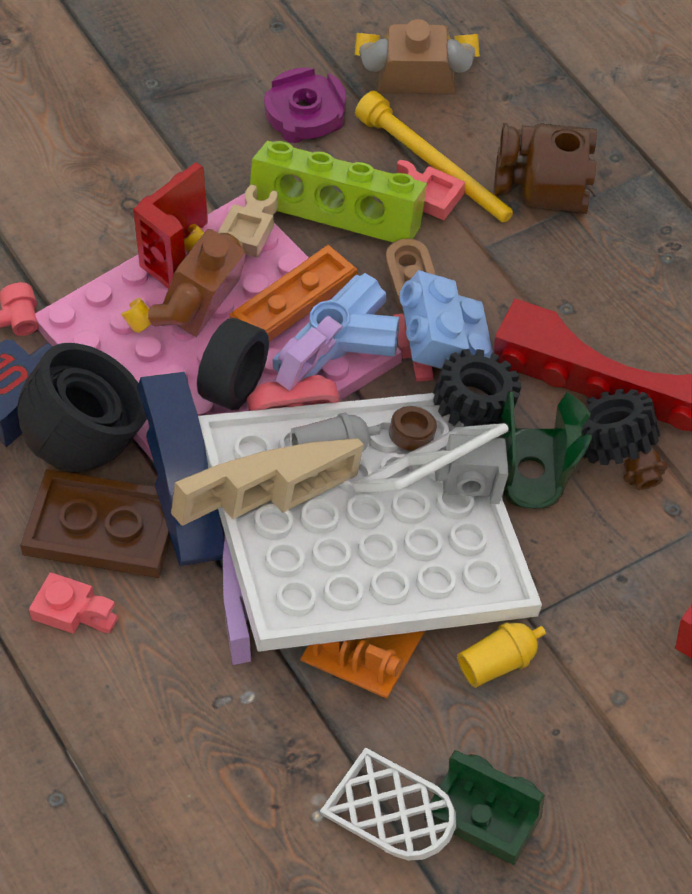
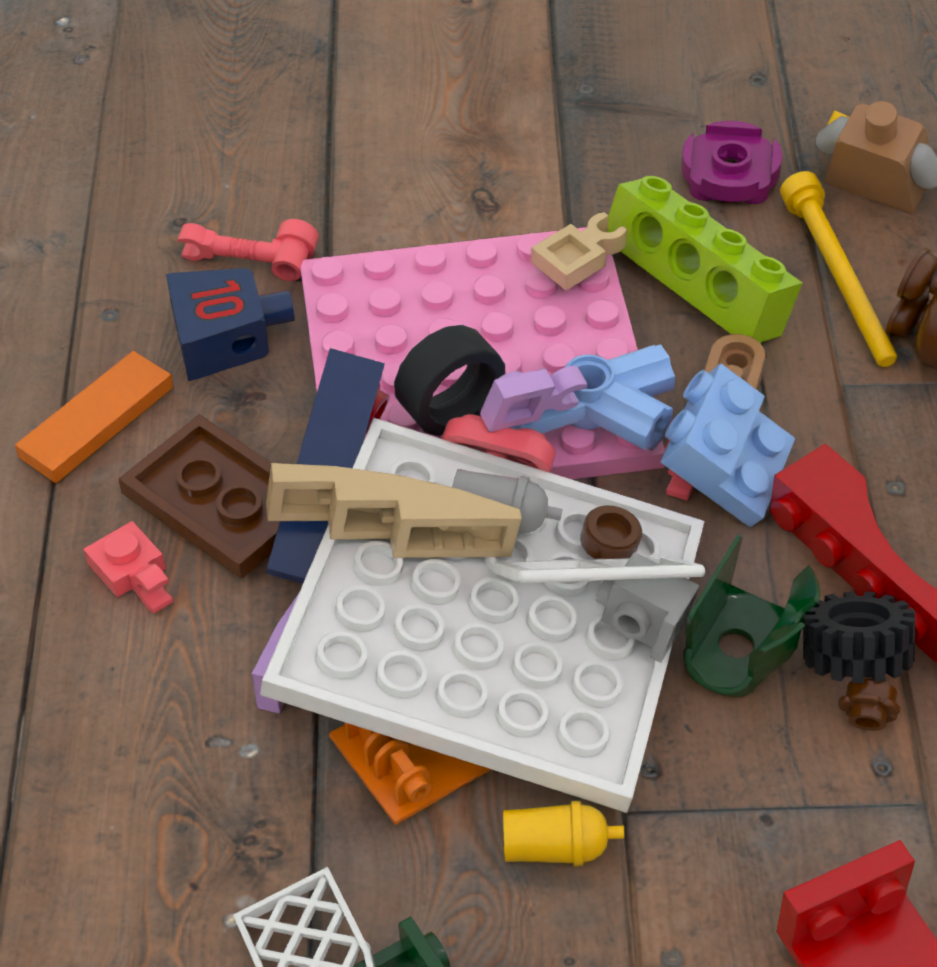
camera: 30 degrees right, 5 degrees down
(79, 408) = (259, 358): black piece -> none
(164, 219) = (486, 211): red bracket -> none
(197, 285) = (474, 283): dark orange torso -> none
(297, 292) = (559, 342): orange tile -> none
(441, 192) = (820, 300): coral plate -> none
(479, 373) = (721, 502): black tyre -> none

